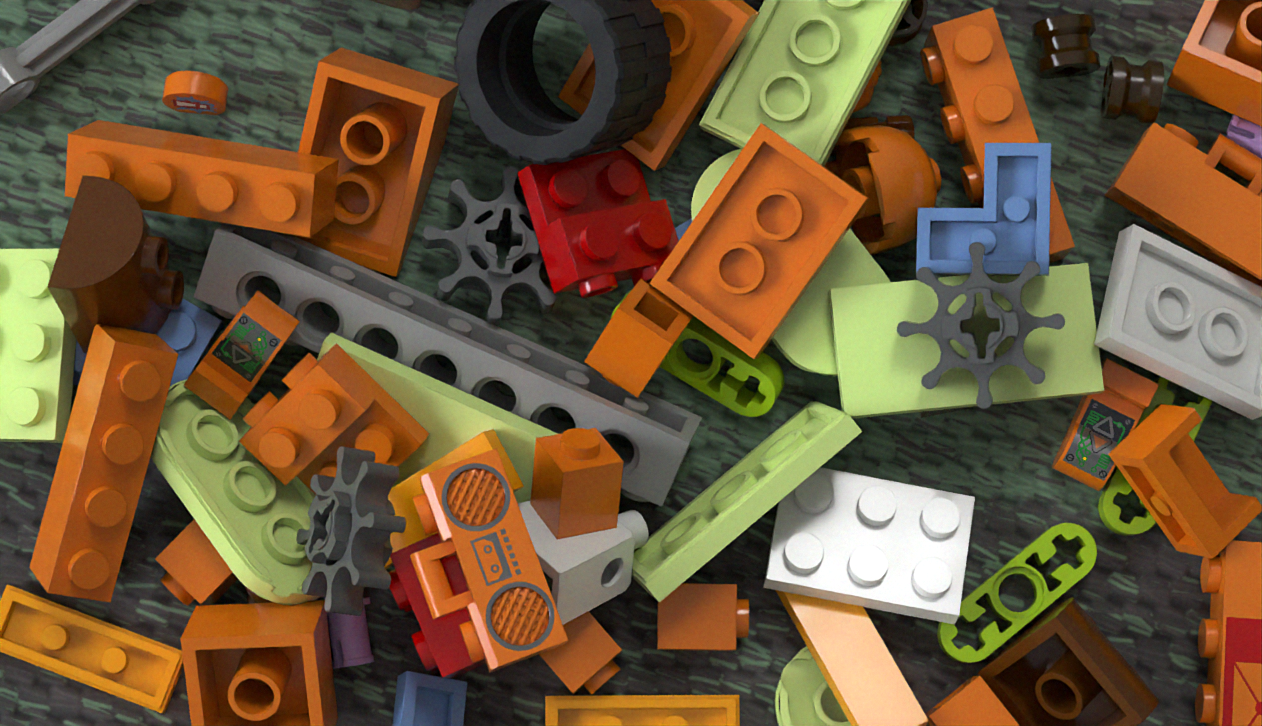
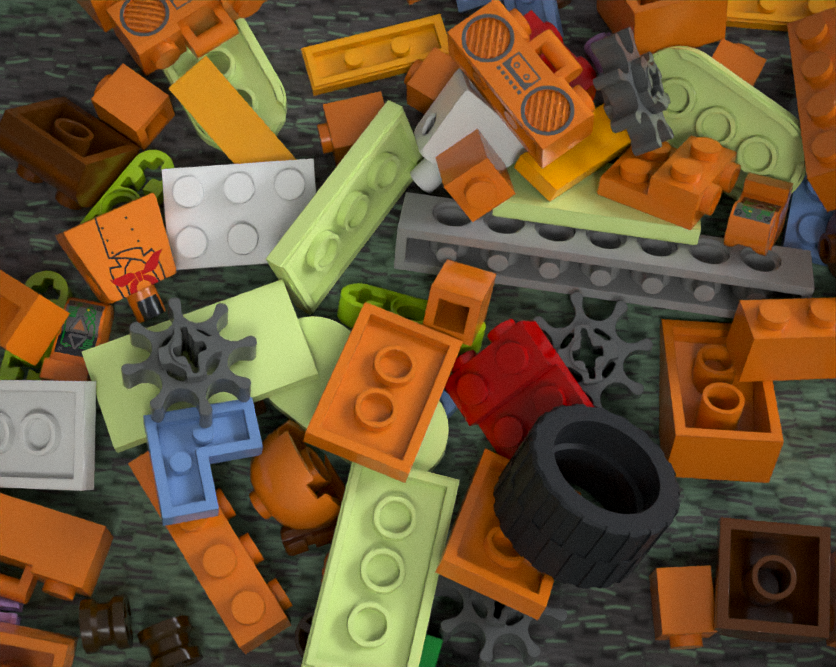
camera: 165 degrees right, 10 degrees down
(1029, 519) = (123, 255): none -> orange torso

